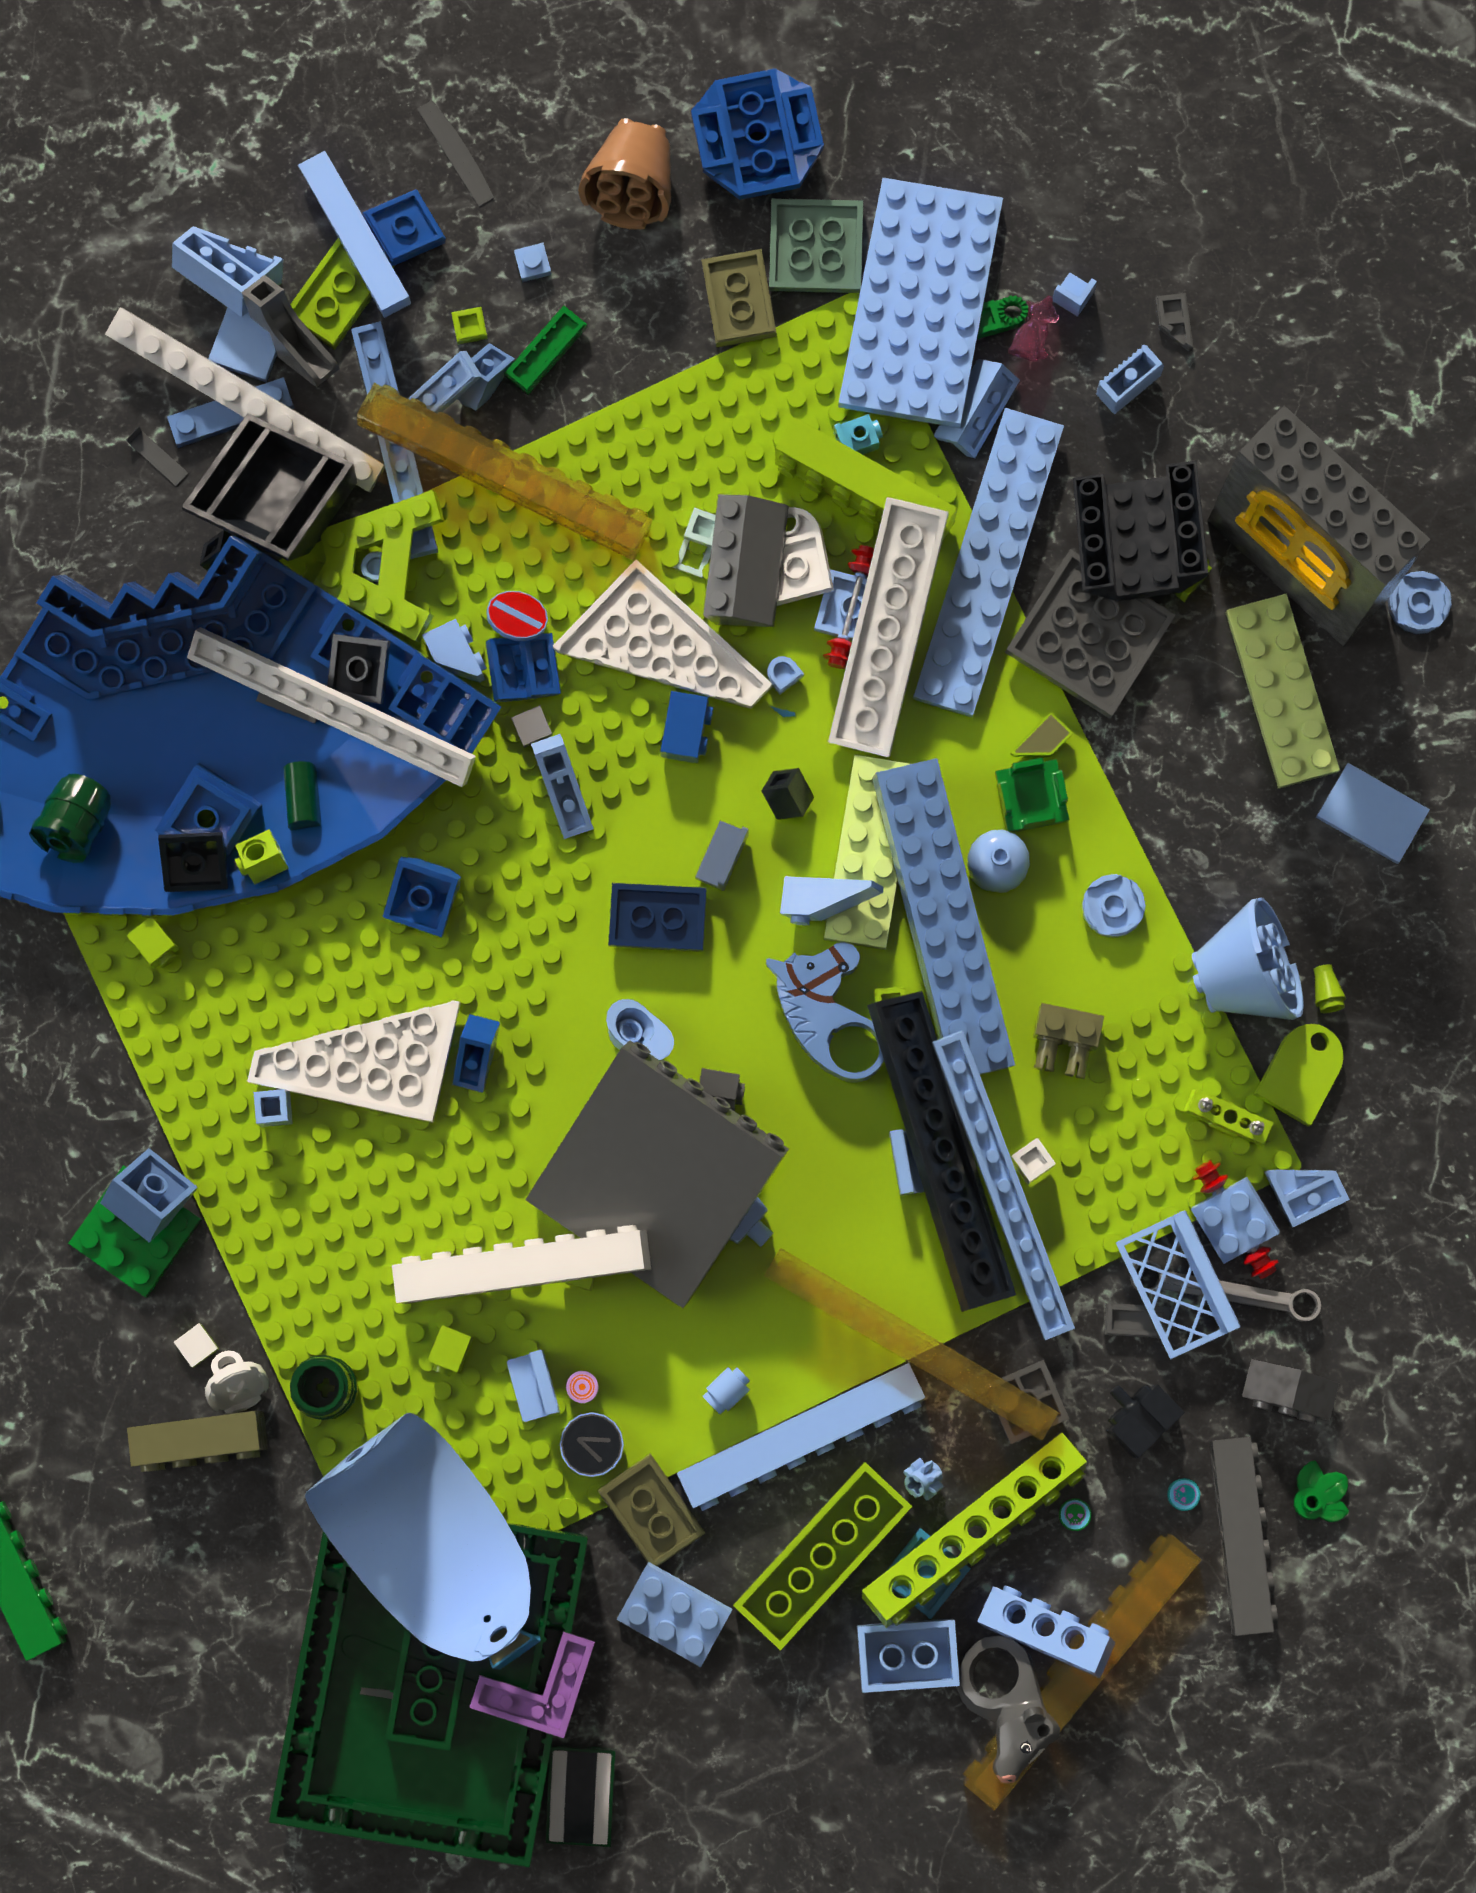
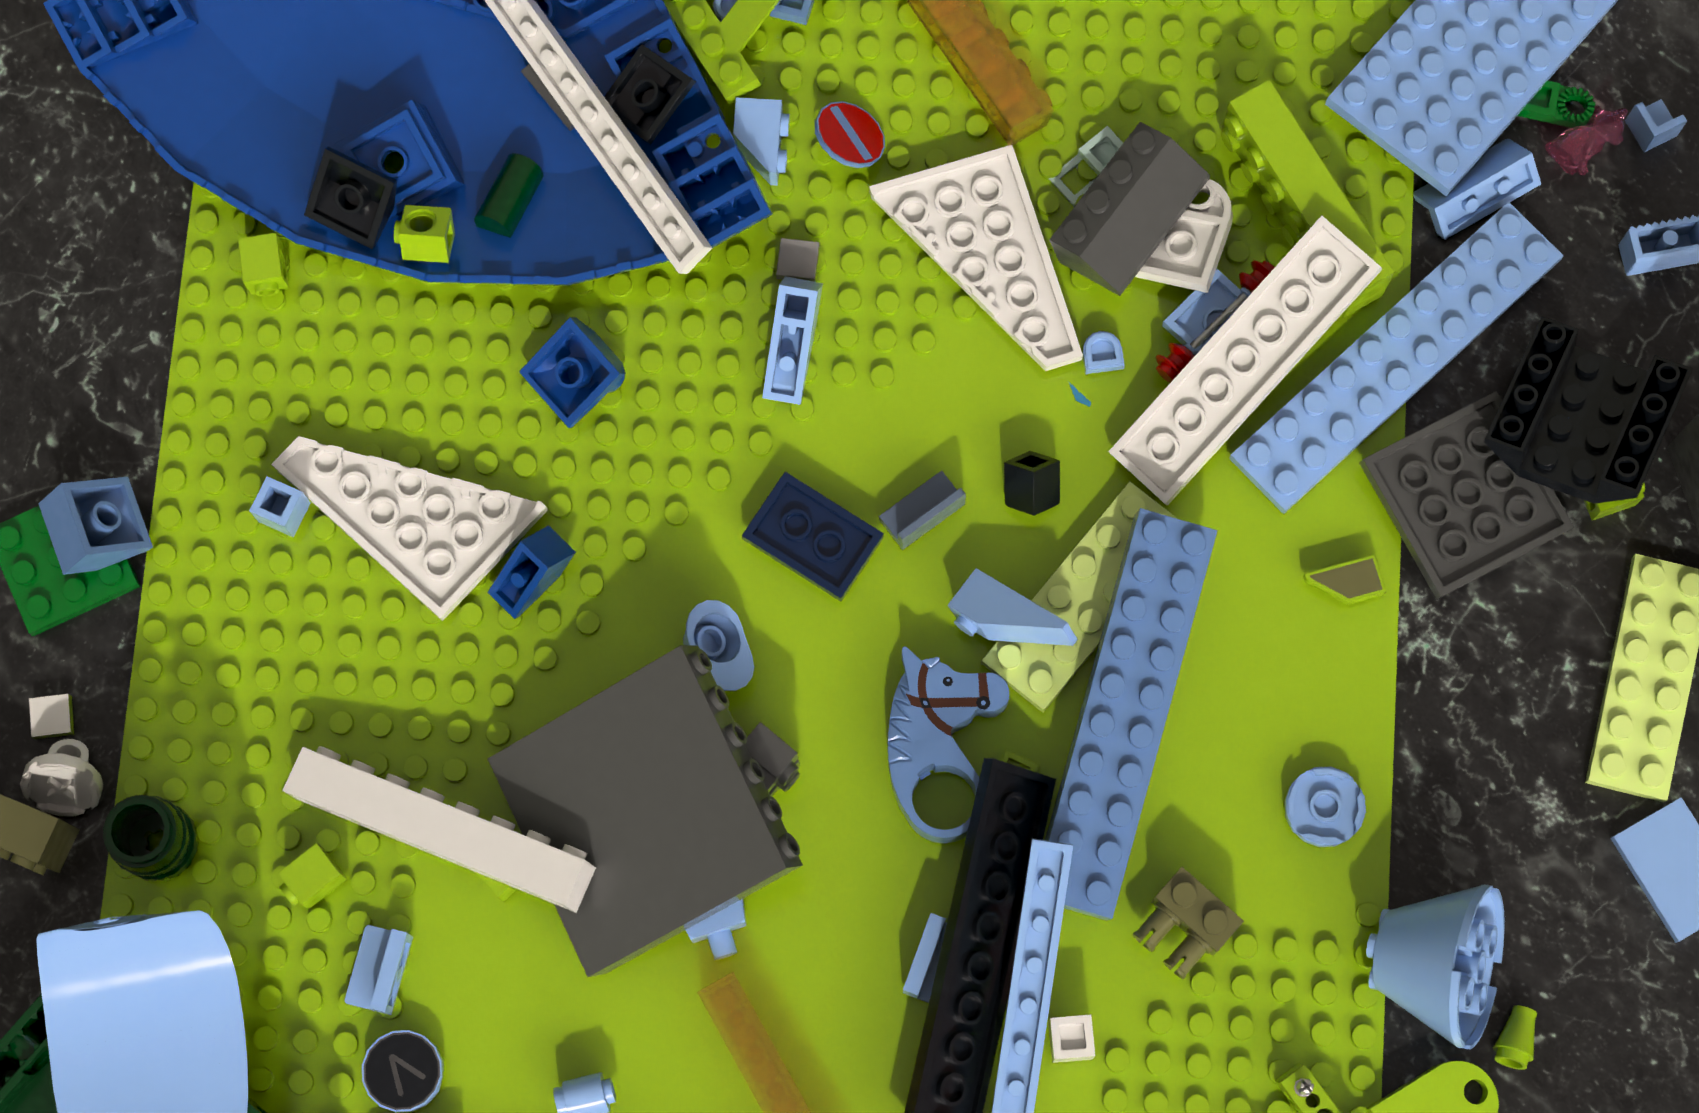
camera: 30 degrees right, 5 degrees down
(72, 818) = (253, 83): dark green piece -> none
(523, 668) = (824, 194): blue slope -> none
(582, 1387) = (430, 1001): lavender tile -> none
(685, 727) = (962, 350): blue brick -> none
(870, 442) = (1334, 157): medium azure brick -> none
(998, 861) = (1223, 685): light blue cylinder -> none
(1032, 795) = (1302, 633): green panel -> none

